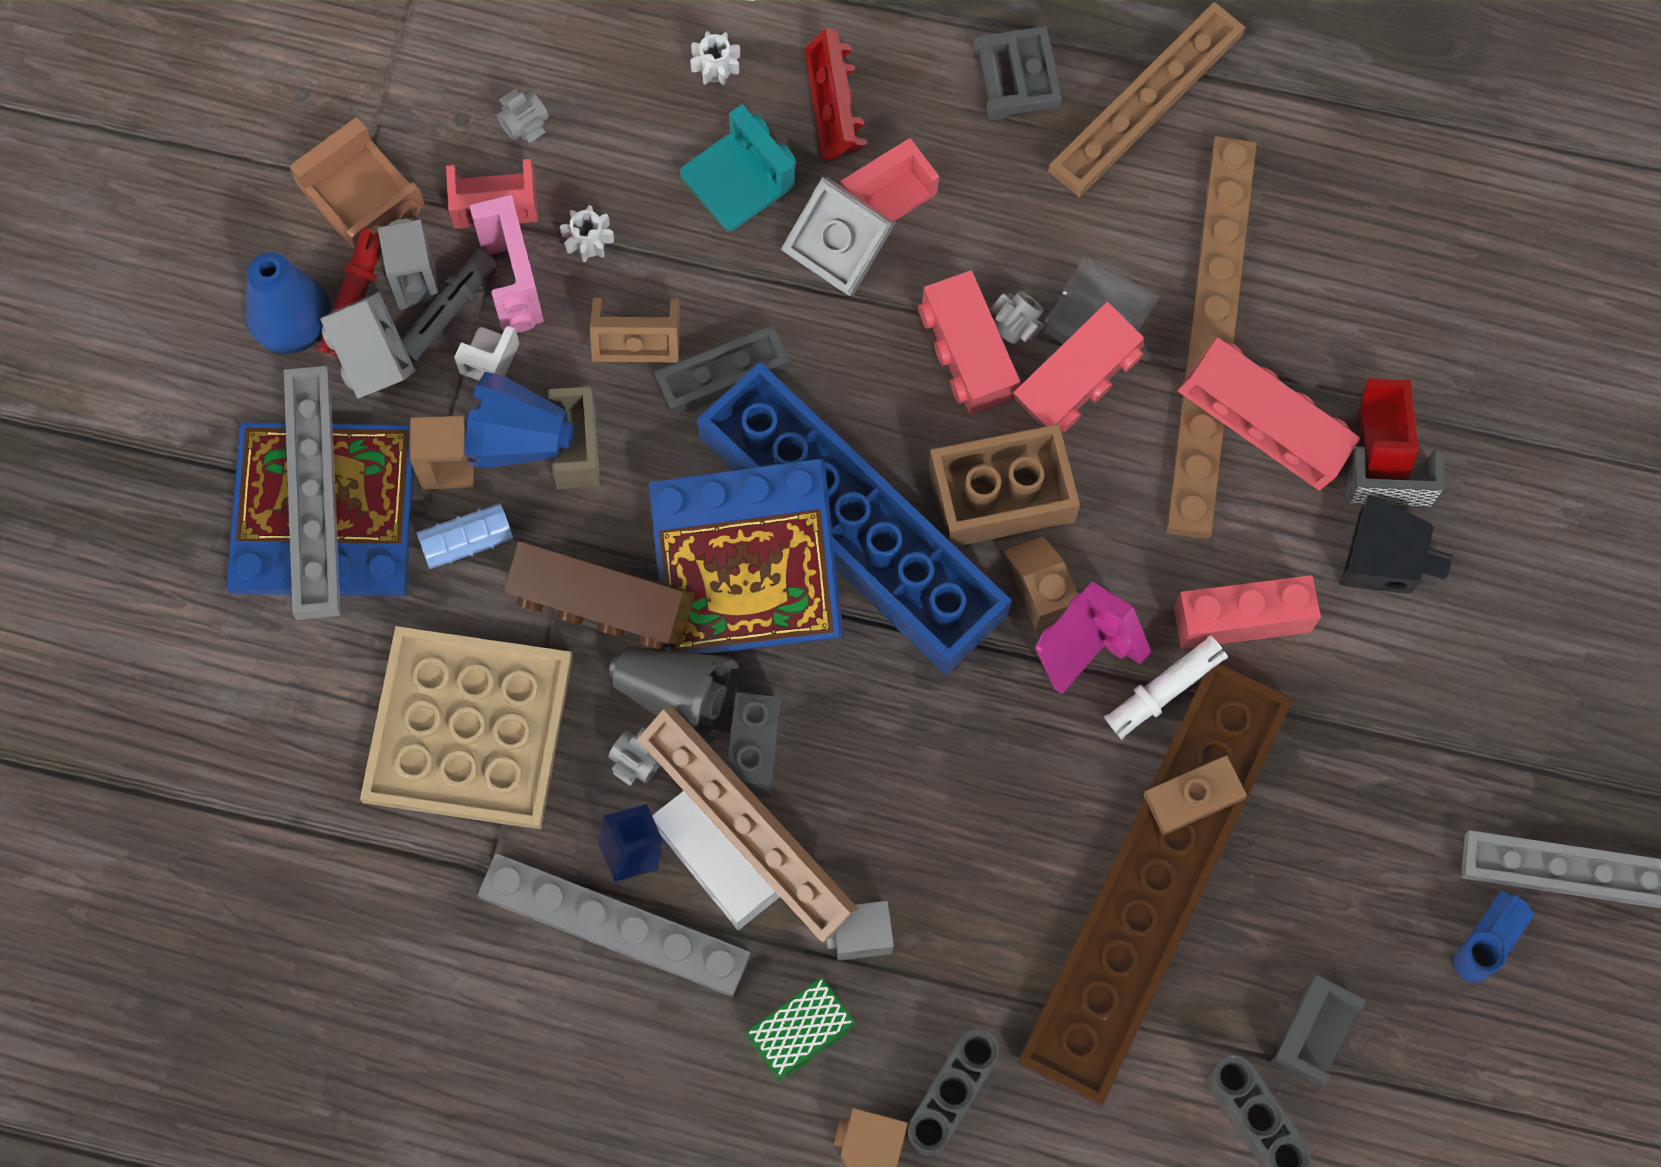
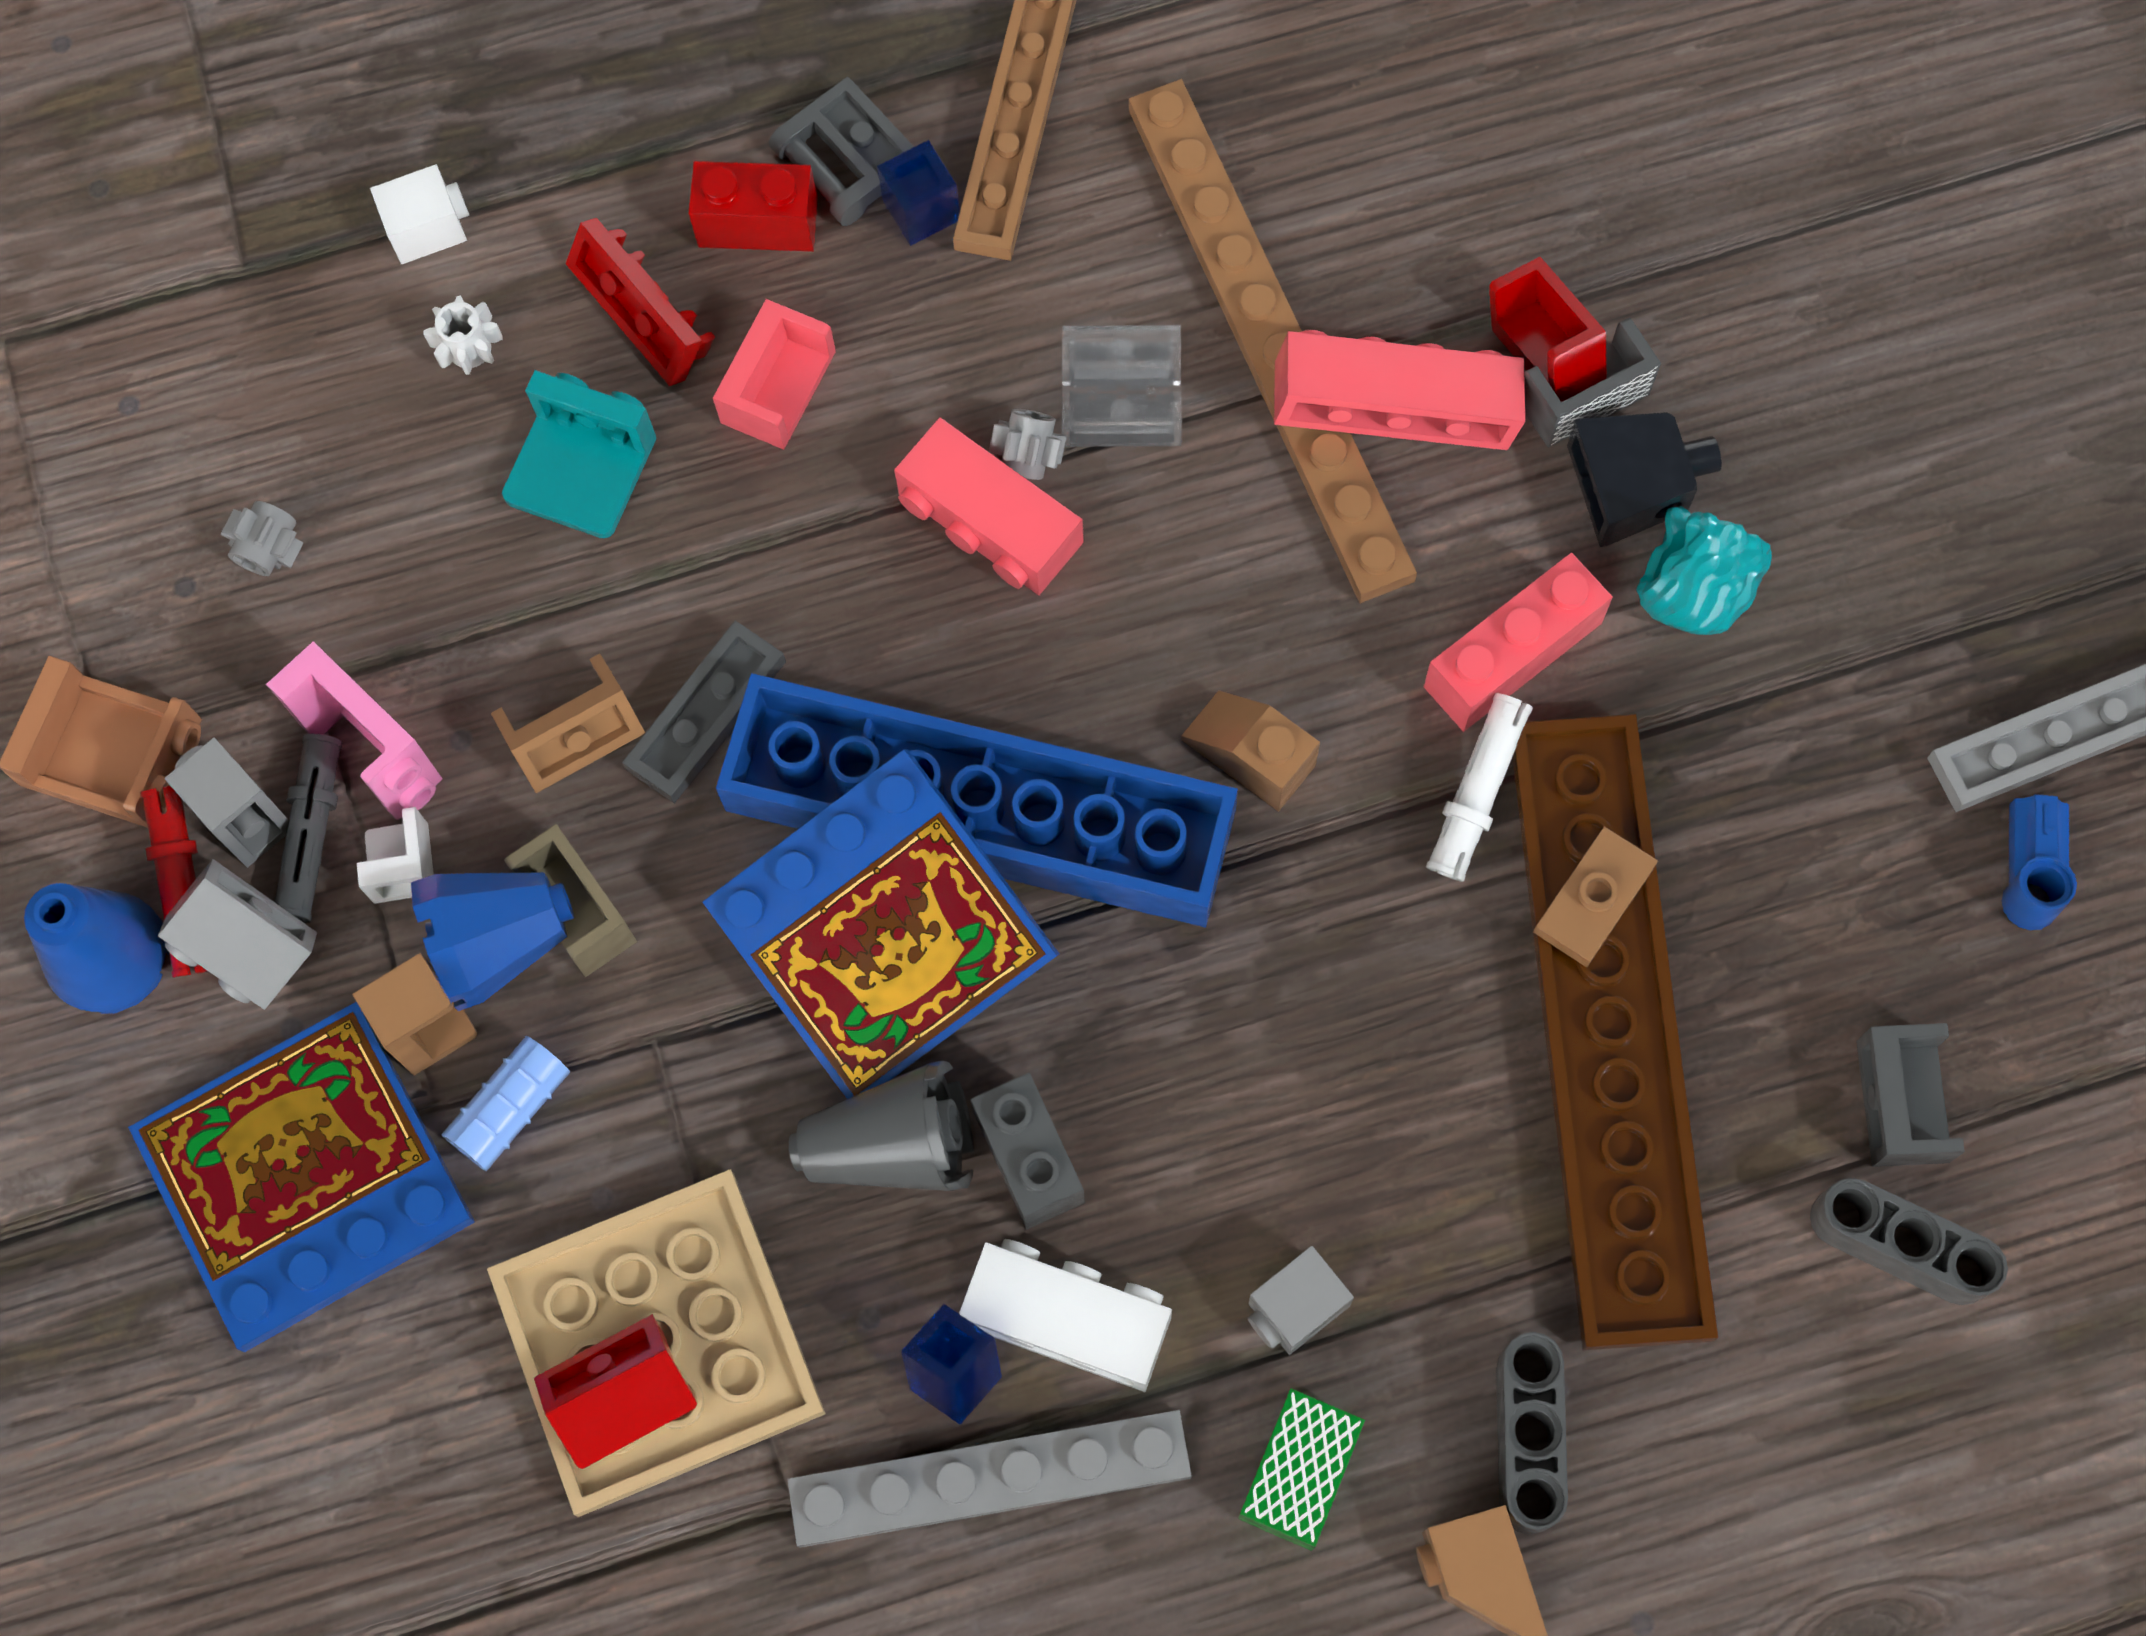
camera: 25 degrees left, 0 degrees up
(311, 493) = (278, 1164): light grey plate -> none
(424, 741) = (614, 1392): none -> red panel
(474, 190) = (256, 665): coral panel -> none
(598, 233) = (424, 623): white gear -> none
(598, 593) = (722, 1077): reddish brown brick -> none
(632, 759) = (891, 1251): light grey gear -> none
(747, 824) = (1085, 1253): plate -> none
(838, 236) = (749, 467): light grey tile -> none
(939, 76) = (753, 206): none -> red brick
(1003, 485) = (1137, 656): medium nougat brick -> none
(1046, 123) = (919, 192): none -> clear blue panel
(1081, 369) = (1145, 464): coral brick -> none
(1090, 623) = (1345, 758): dark pink bracket -> none
(1390, 636) = (1702, 573): none -> teal hair

